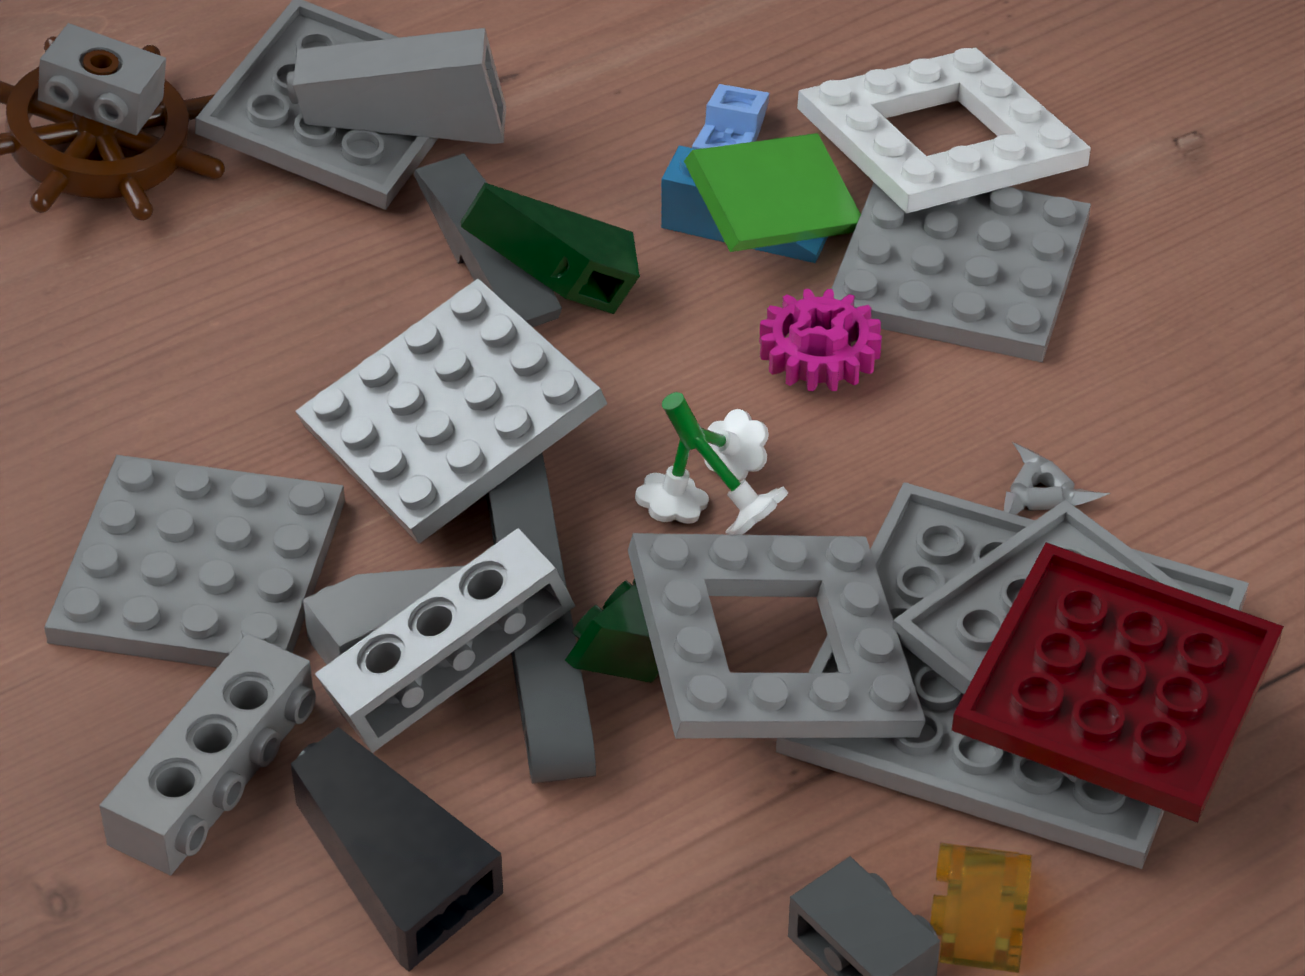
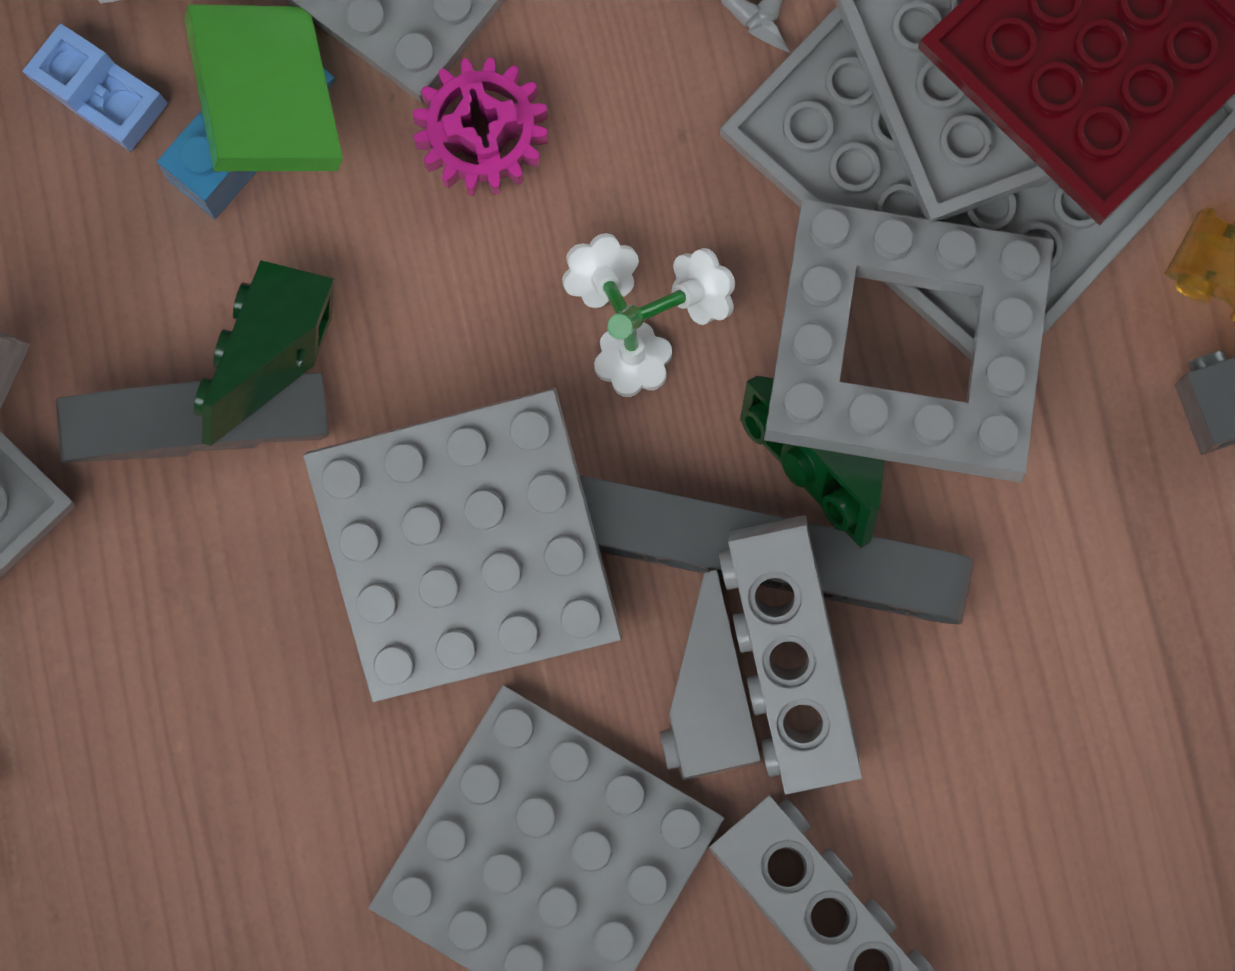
camera: 70 degrees left, 35 degrees up
(395, 847) = (1009, 779): black slope -> none

